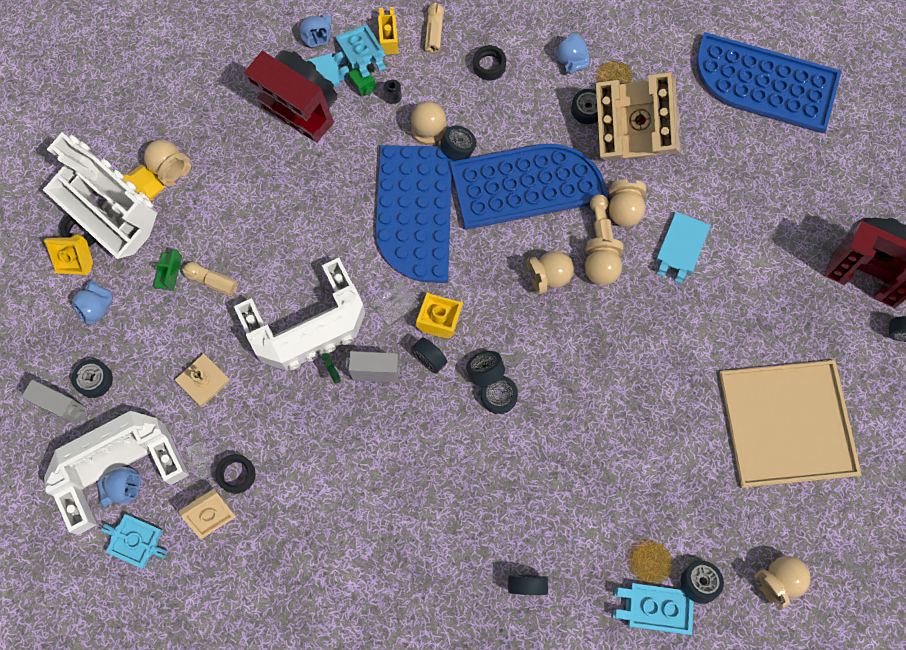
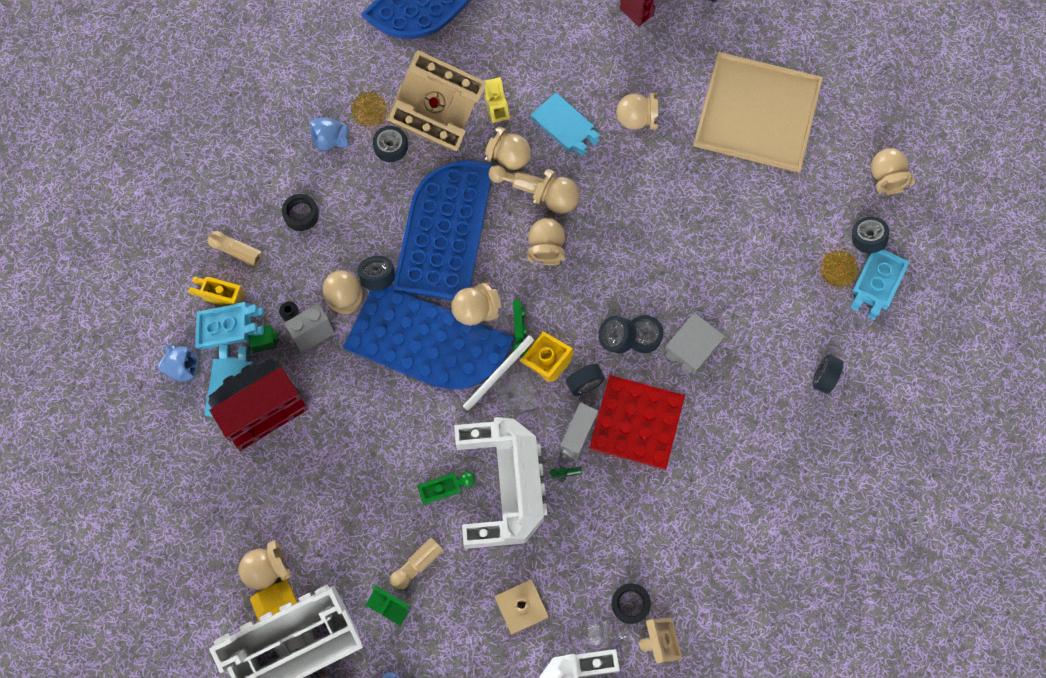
camera: 70 degrees left, 0 degrees up
(286, 275) = (444, 487): none -> green plate
(382, 108) = (309, 328): none -> light grey brick
(408, 279) = (498, 373): none -> white piece
(410, 420) = (637, 422): none -> red plate
(457, 280) = (520, 330): none -> green plate
(458, 230) = (476, 304): none -> tan tile
(506, 443) = (693, 344): none -> light grey brick
(673, 176) = (495, 100): none -> light yellow brick
(726, 304) = (636, 111): none -> tan tile

